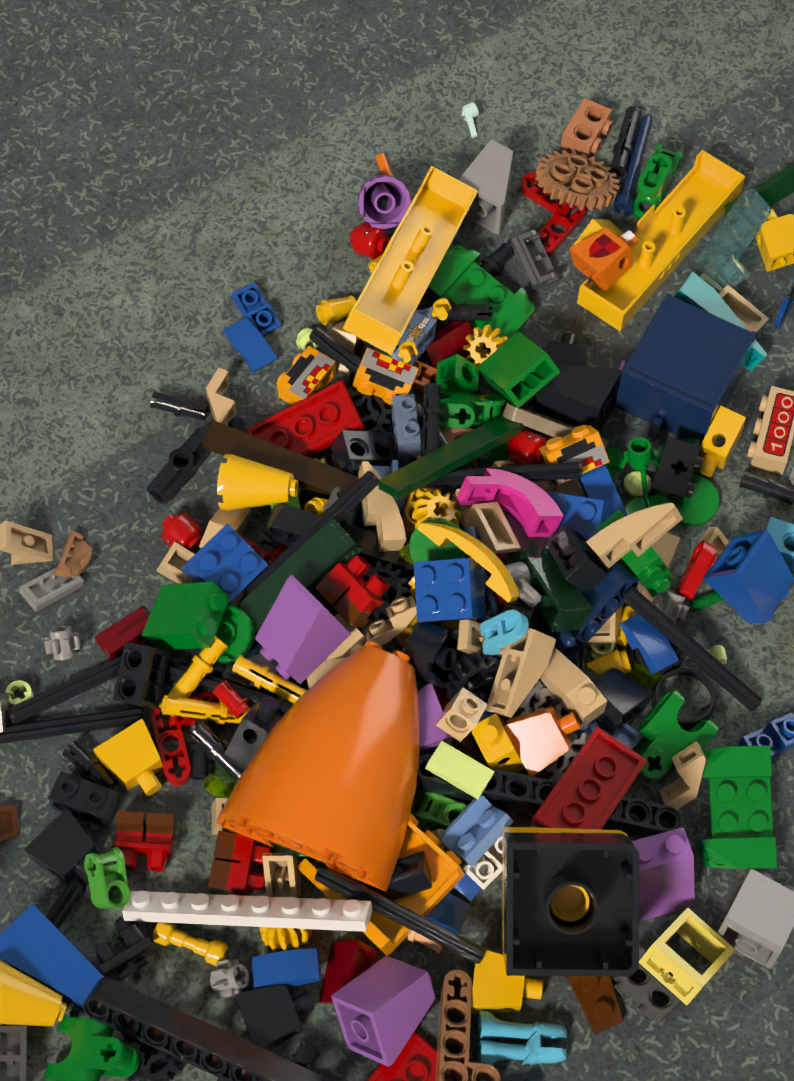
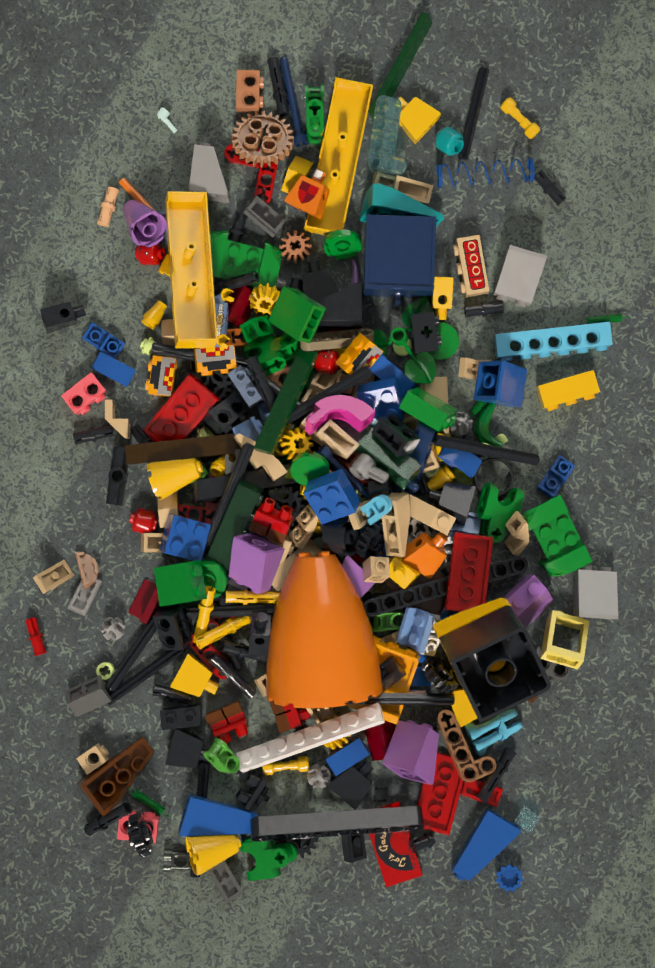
camera: 25 degrees left, 25 degrees up
(176, 743) = (225, 669): none -> black pin
(196, 349) = (82, 389): none -> coral brick
(216, 787) = (252, 671): clear neon green tile -> none
(219, 256) = (54, 321): none -> black torso
(231, 699) = (234, 619): red pin -> none
(347, 174) = (108, 206): none -> light nougat pin
(459, 770) = (390, 601): yellowish green tile -> none
(479, 915) = (440, 674): none -> black gear
(500, 580) = (311, 466): yellow slope -> none
(556, 311) = (298, 252): none -> nougat gear
(617, 329) = (342, 244): none -> green tile
(634, 533) = (425, 409): tan slope -> none
(700, 561) = (466, 394): red piece -> none
(703, 621) = (482, 426): none -> green piece

